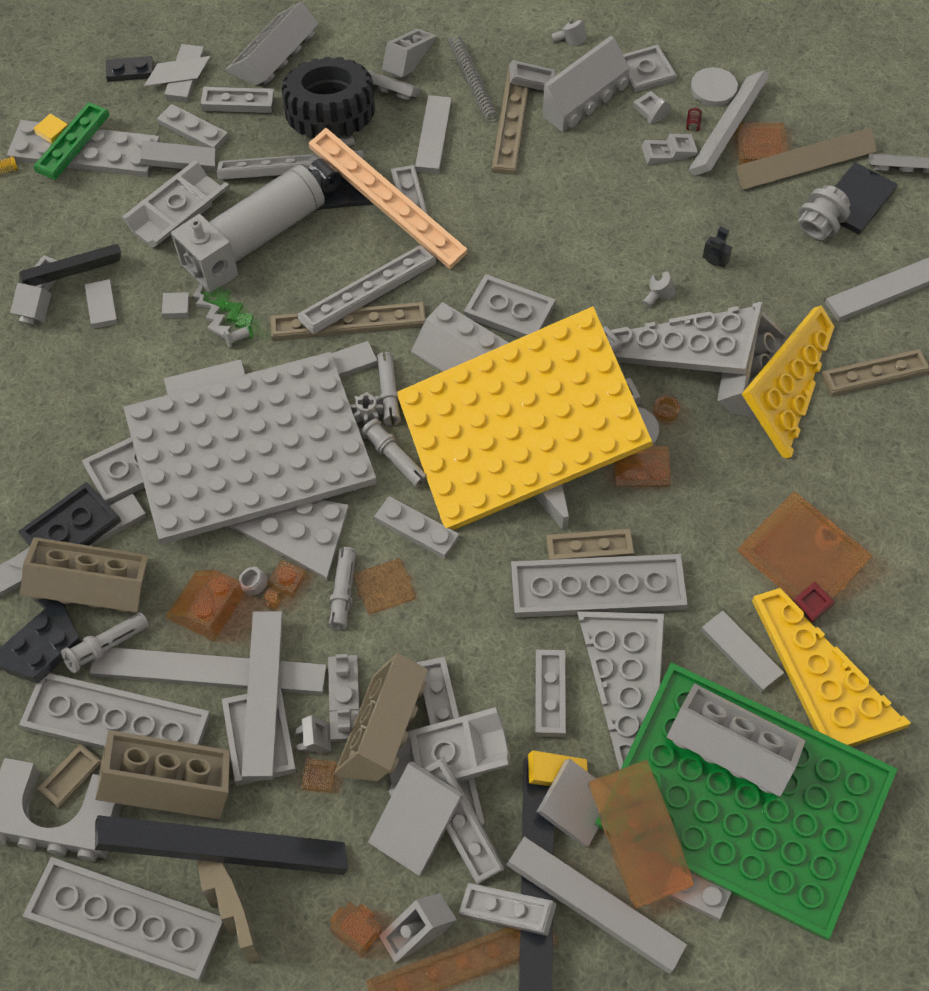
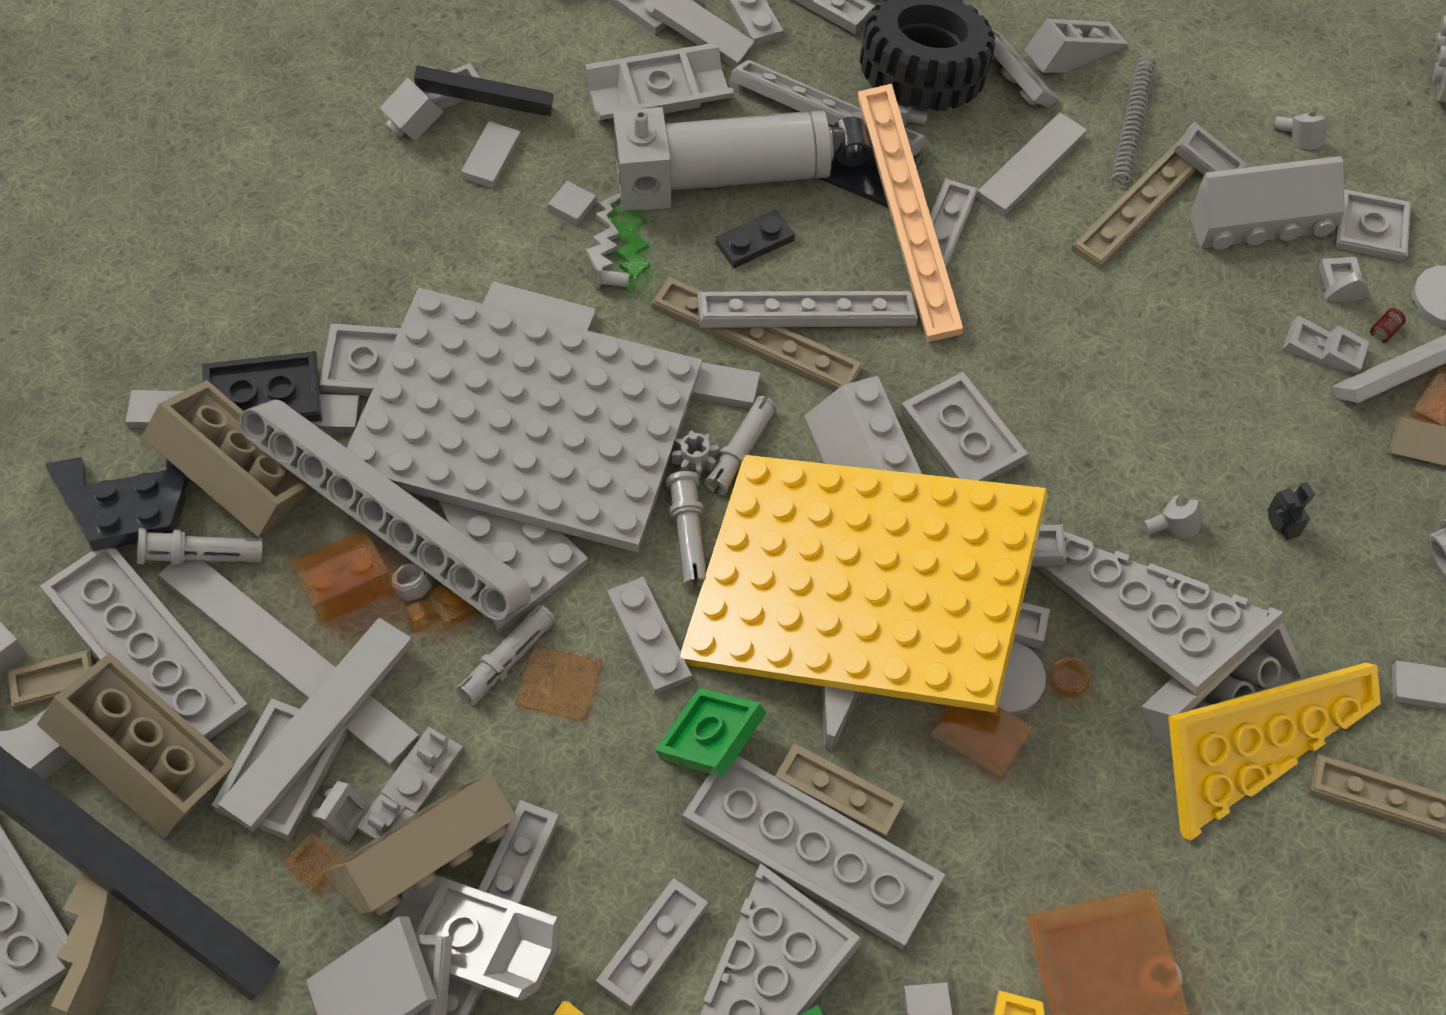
camera: 30 degrees right, 0 degrees up
(195, 553) = (386, 509): none -> light grey beam
(304, 265) = (755, 238): none -> black plate
(496, 557) = (711, 732): none -> green plate

